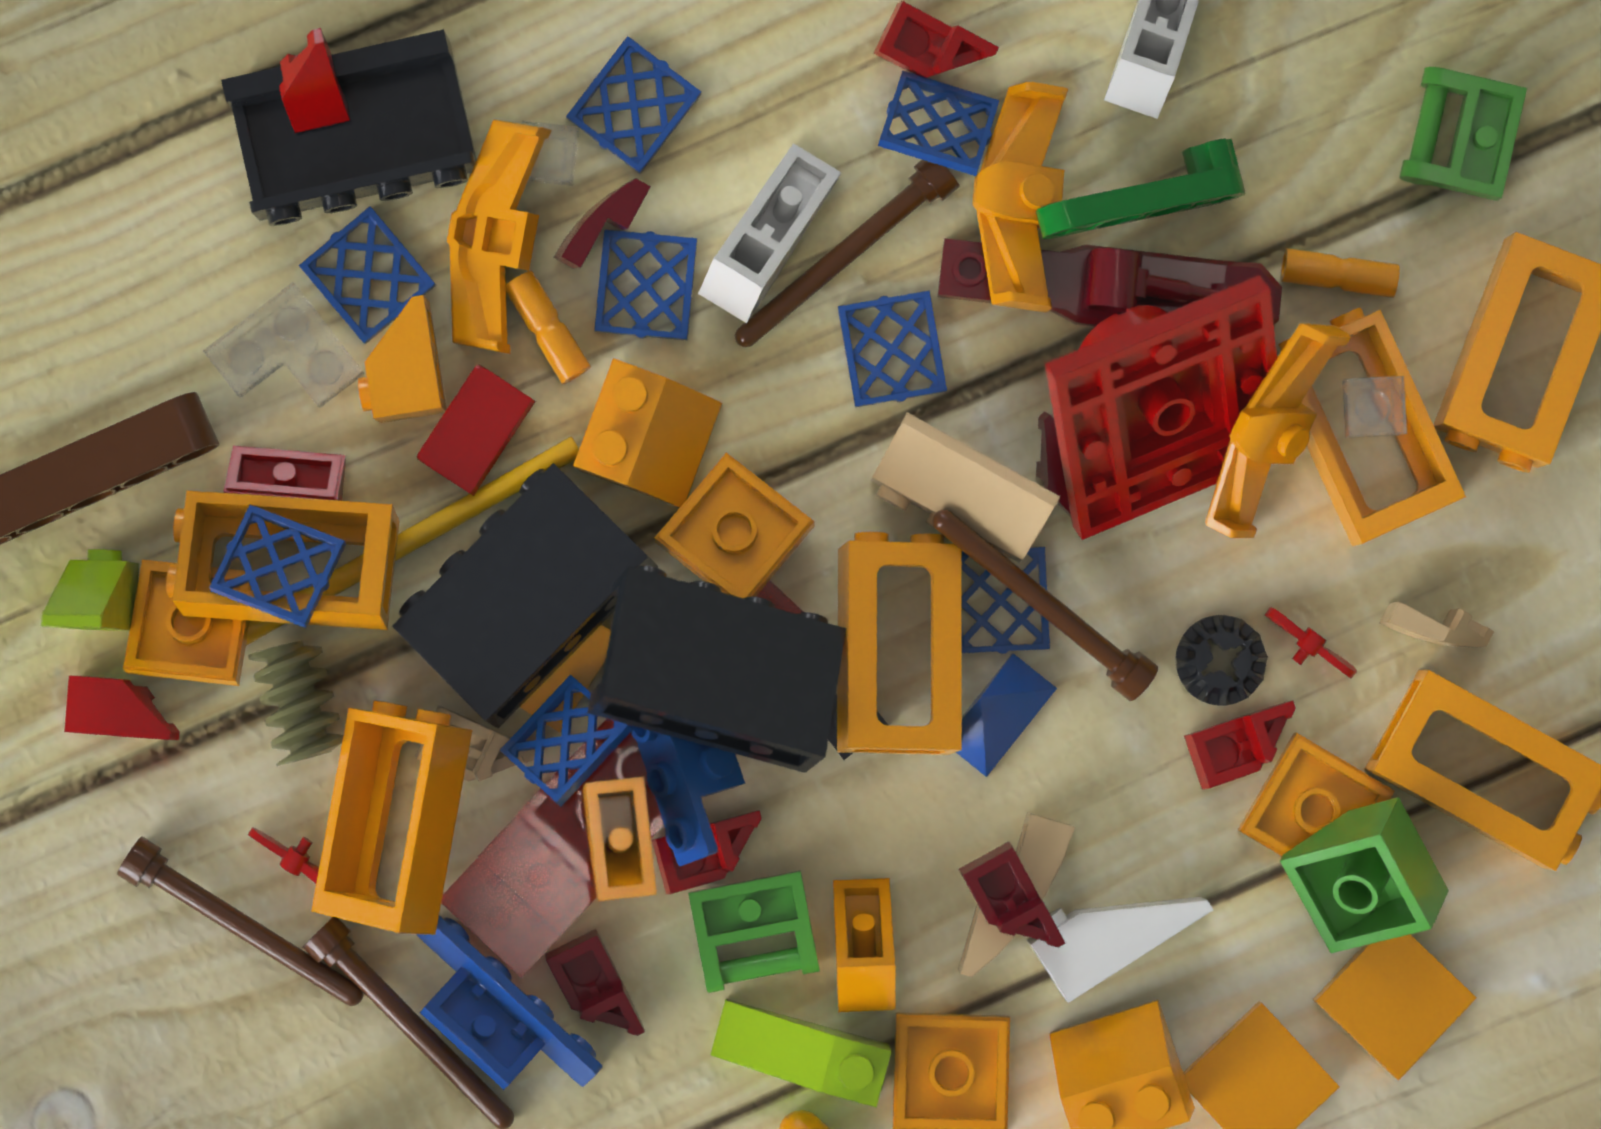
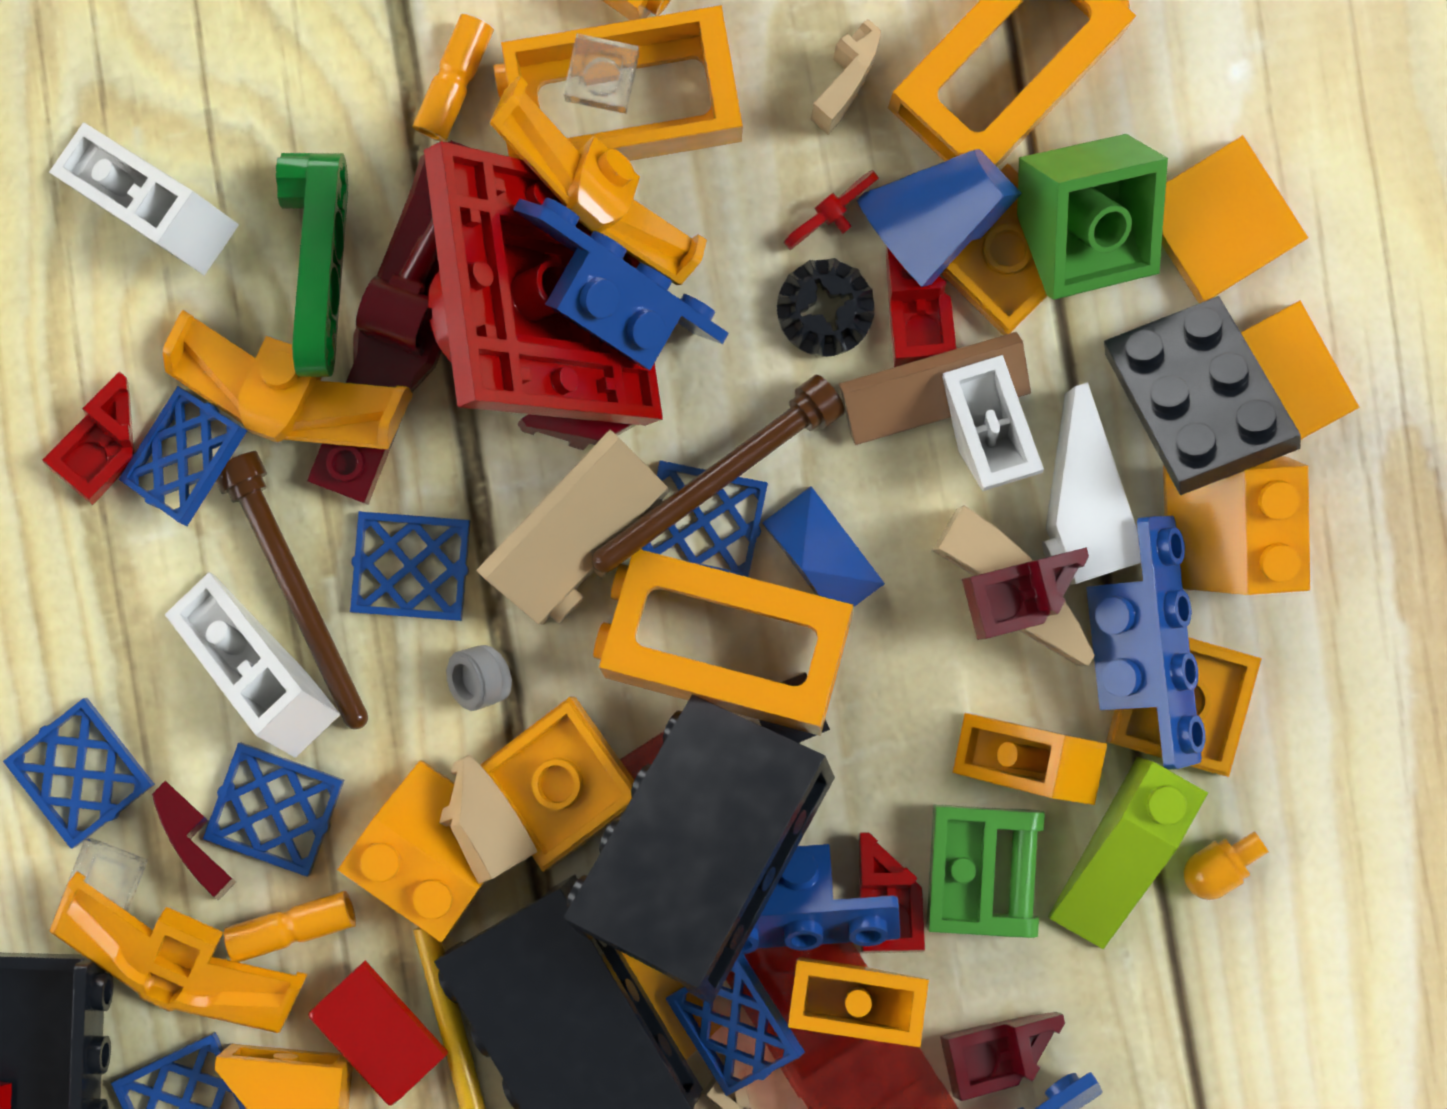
camera: 80 degrees left, 0 degrees up
(685, 475) = (484, 822): none -> tan slope
(809, 435) = (478, 677): none -> light grey tile
(994, 1022) = (1145, 643): none -> blue bracket
(1154, 833) = (990, 424): none -> white slope
(1173, 777) = (916, 392): none -> medium nougat tile
(1175, 471) = (610, 297): none -> blue bracket
(1228, 1014) = (1201, 395): none -> plate
(1331, 738) = (938, 211): none -> blue slope

